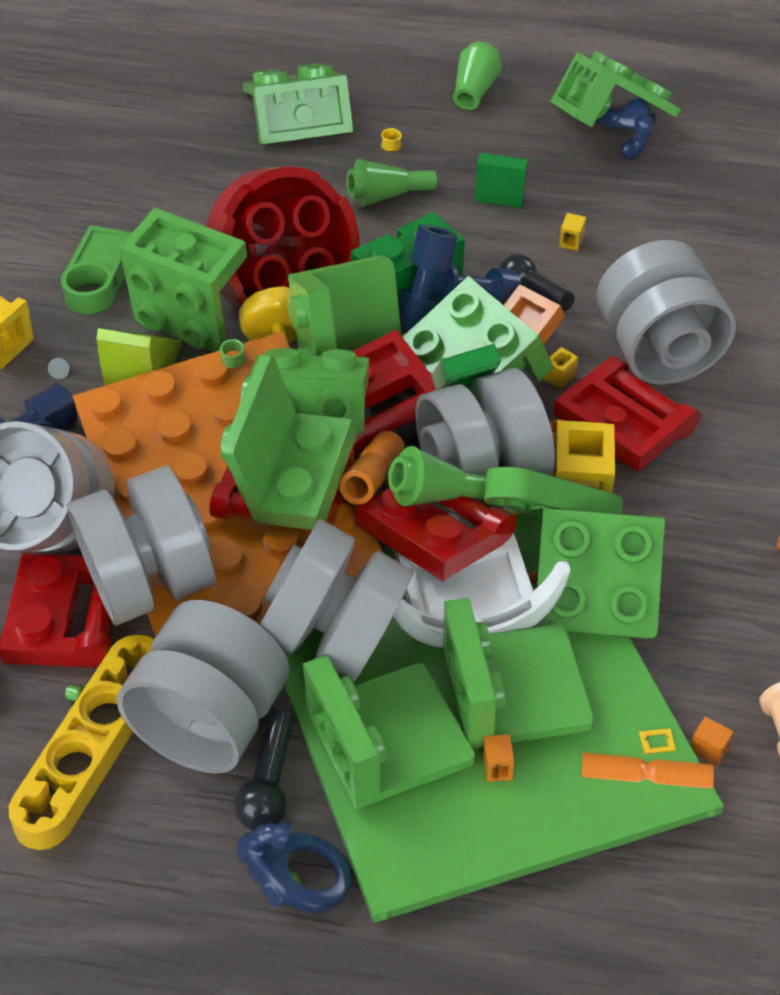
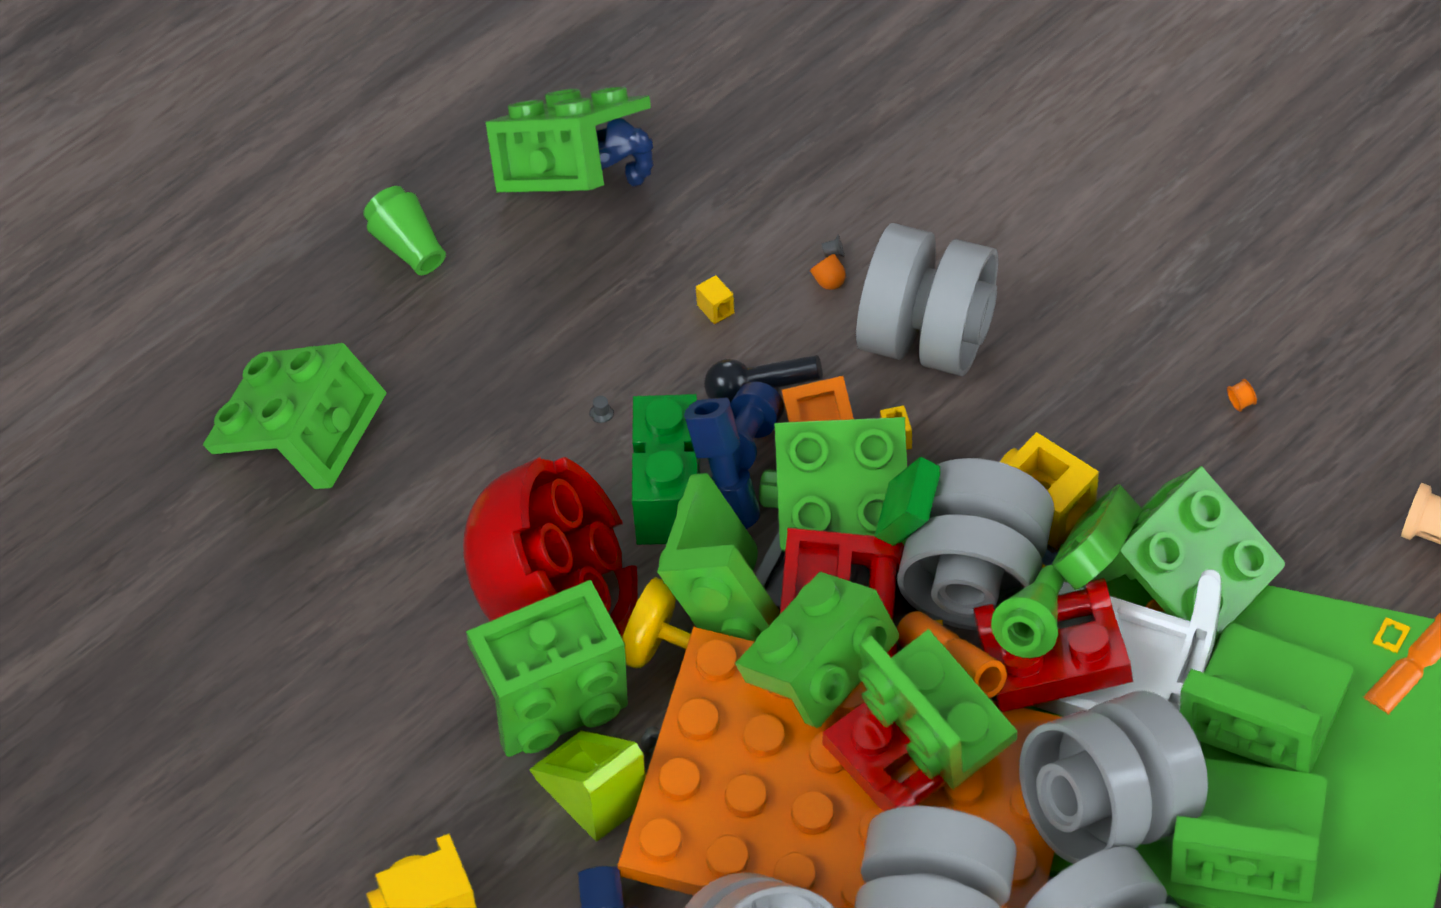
camera: 50 degrees left, 5 degrees up
(58, 368) = (529, 865): light grey piece -> none
(98, 263) = (398, 738): bright green piece -> none
(232, 345) = (702, 673): bright green piece -> none
(376, 182) = (499, 421): bright green cone -> none
(391, 140) = (431, 375): yellow piece -> none
(498, 758) = (1335, 761): orange piece -> none
(500, 180) = (598, 310): green tile -> none
(641, 415) = (998, 425): red plate -> none
(711, 741) = (1413, 596): orange piece -> none

